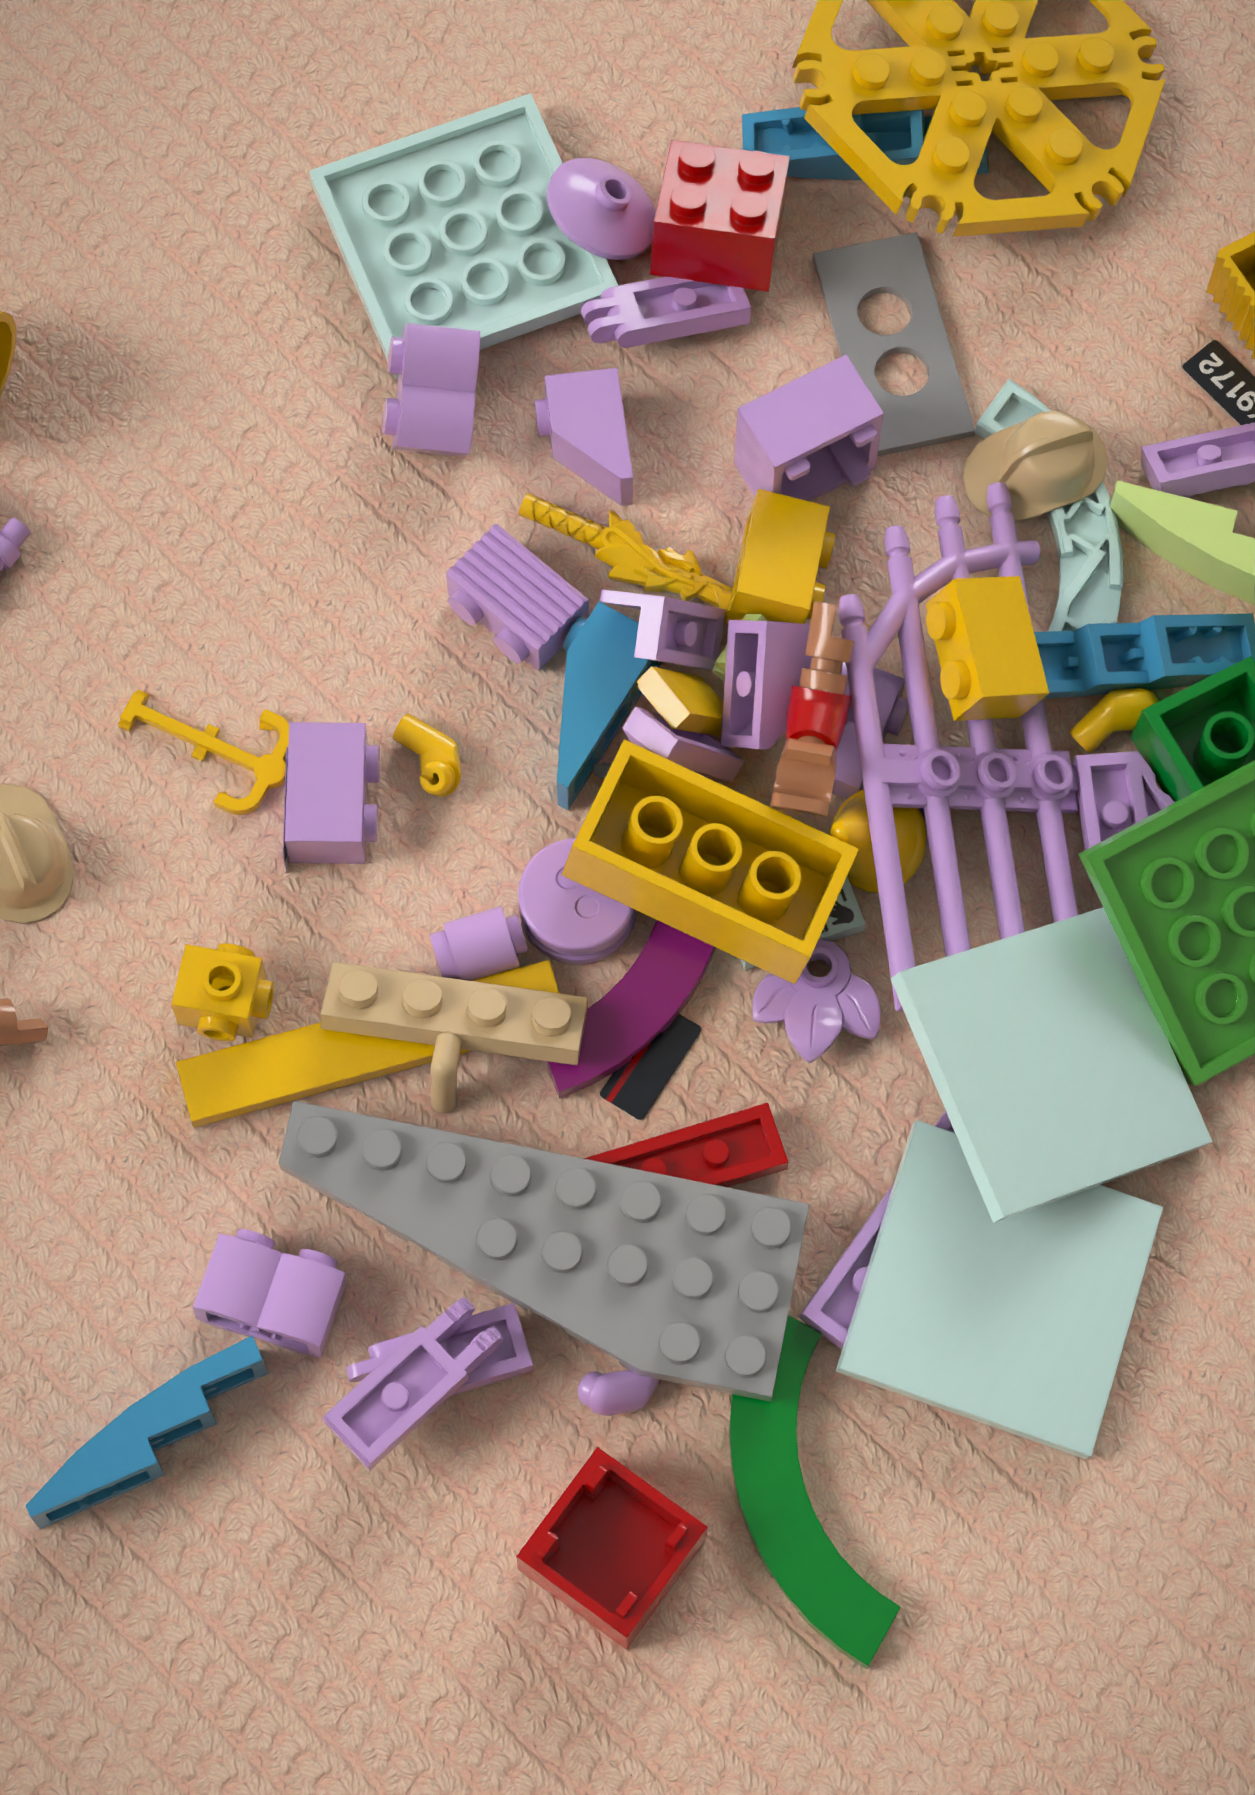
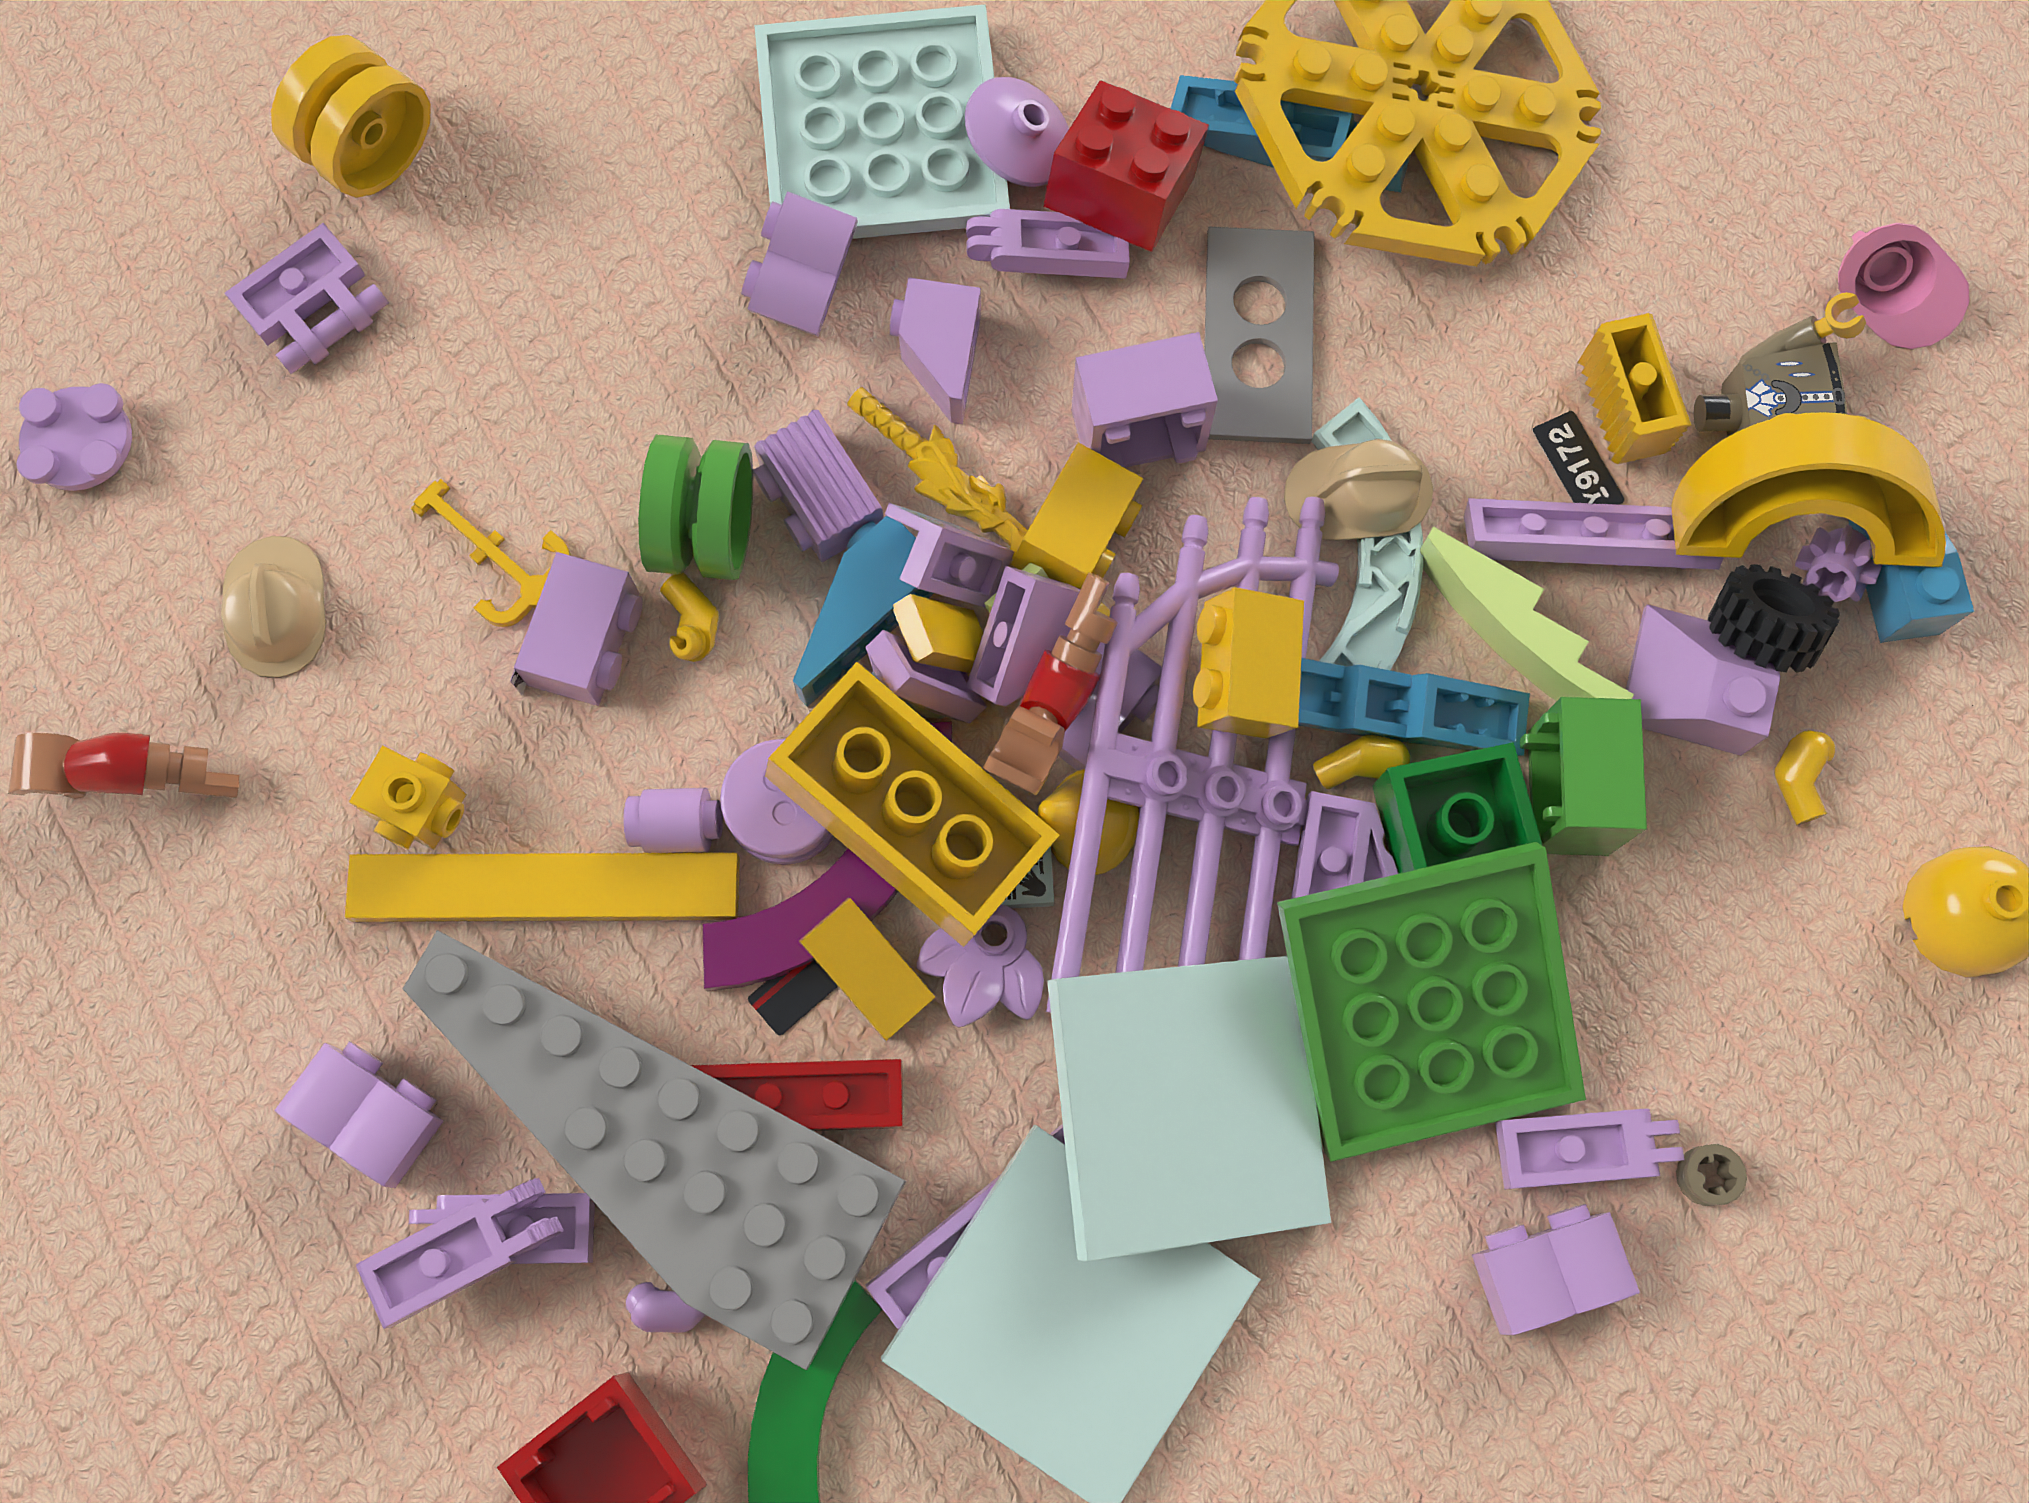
camera: 15 degrees right, 5 degrees up
(125, 1449) = (181, 1227): dark azure slope -> none
(412, 644) = (696, 507): none -> bright green wheel
(453, 1018) = (622, 887): tan plate -> none
(708, 1031) = (867, 969): none -> yellow tile

